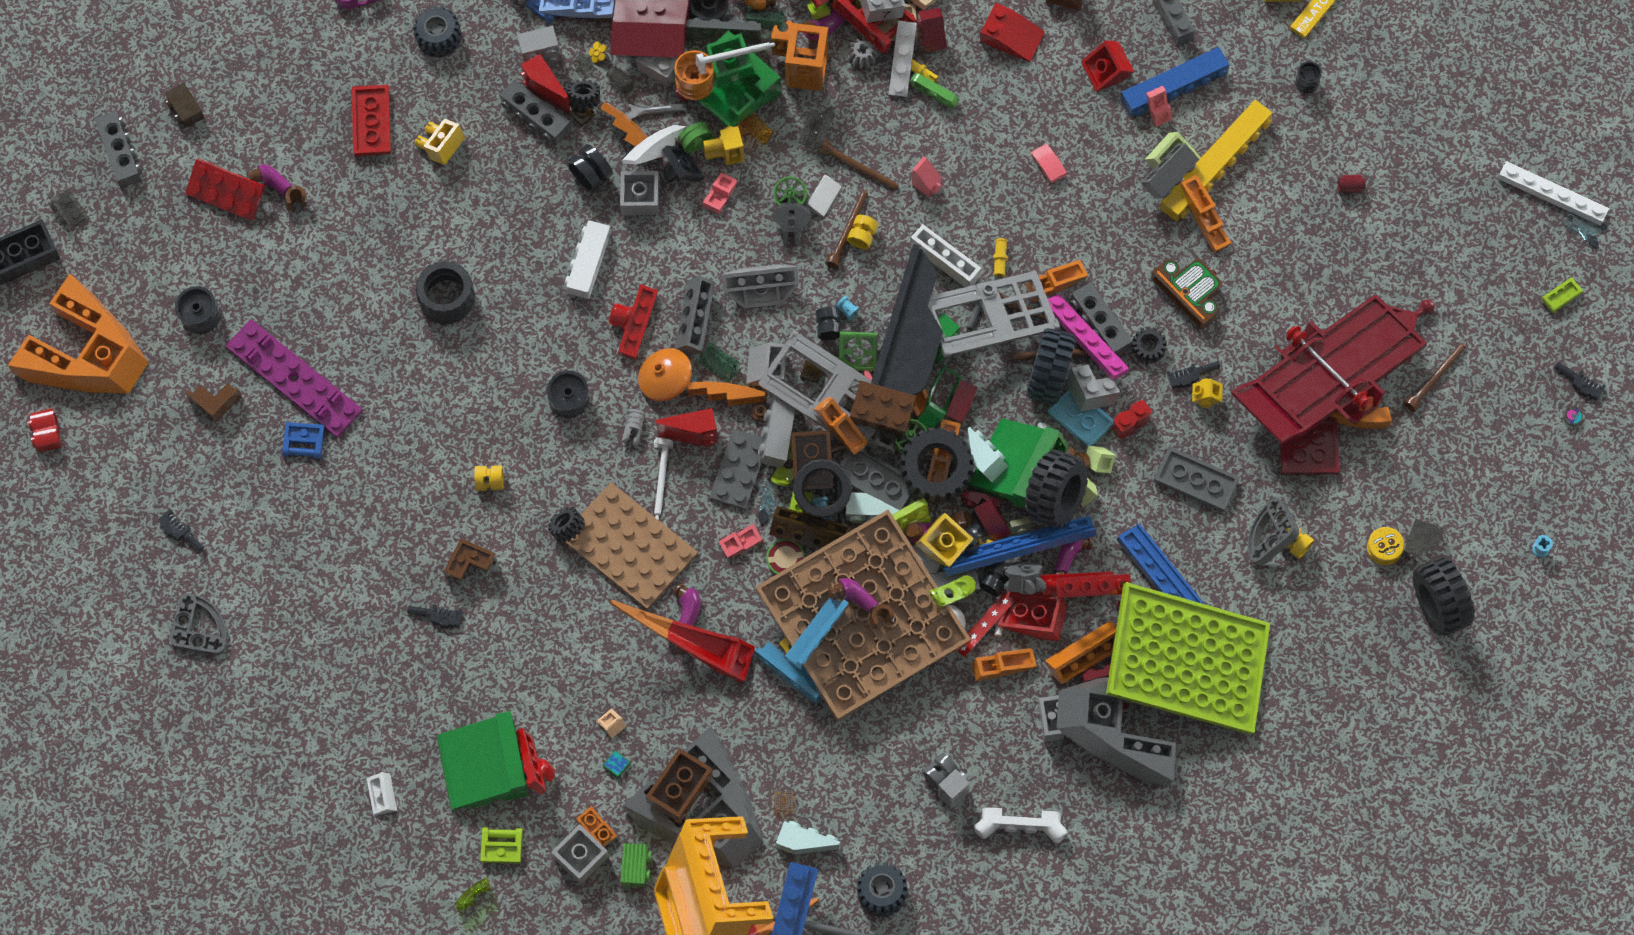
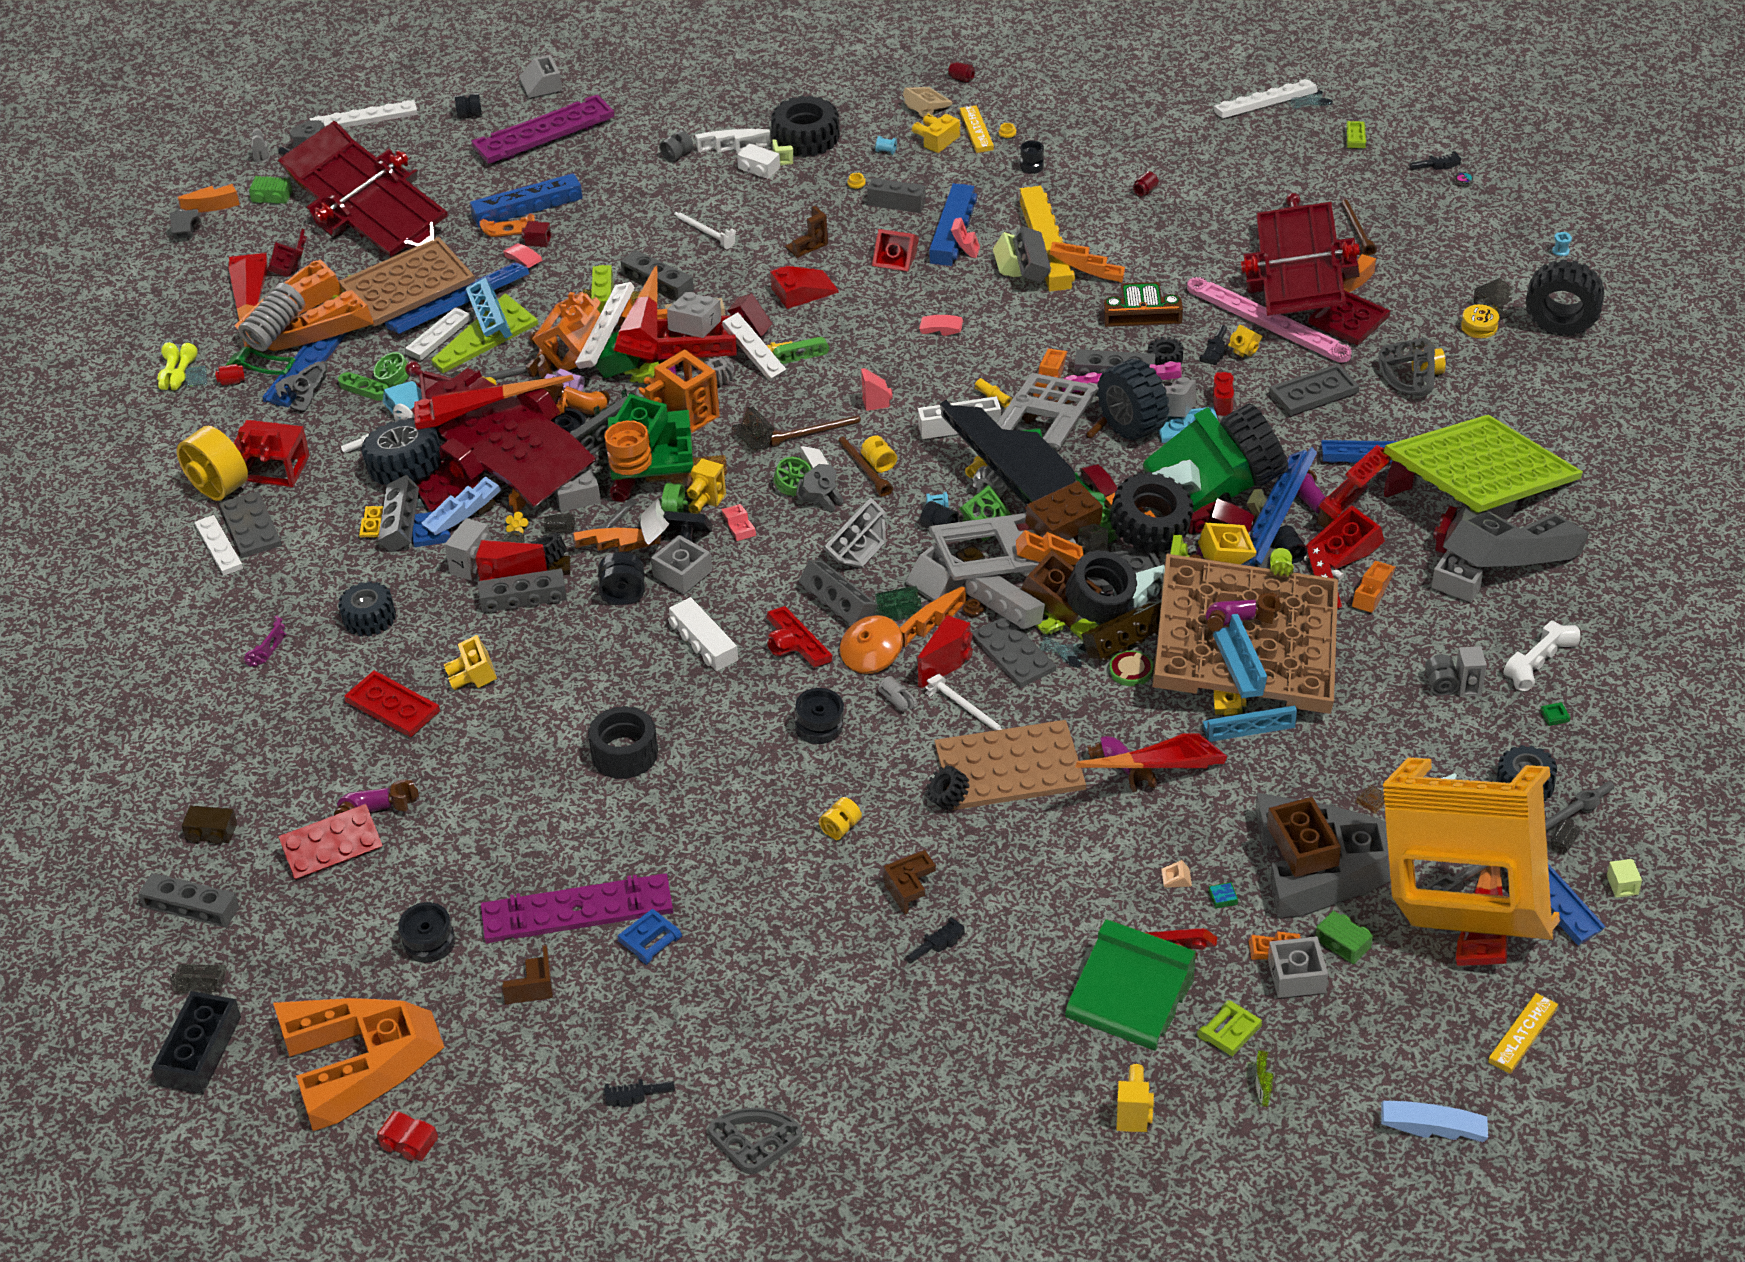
camera: 50 degrees left, 25 degrees down
(381, 794) = (1083, 1094): white slope -> none
(385, 831) = (1134, 1102): none -> yellow brick
(701, 60) = (627, 423): white piece -> none
(740, 542) = (1084, 686): coral slope -> none
(969, 870) = (1555, 714): none -> green tile
(1026, 579) = (1315, 517): dark grey hinge -> none
(1082, 653) = (1413, 527): orange brick -> none
(1254, 368) = (1276, 323): none -> bright pink plate
(1334, 27) = (1007, 130): none -> yellow plate

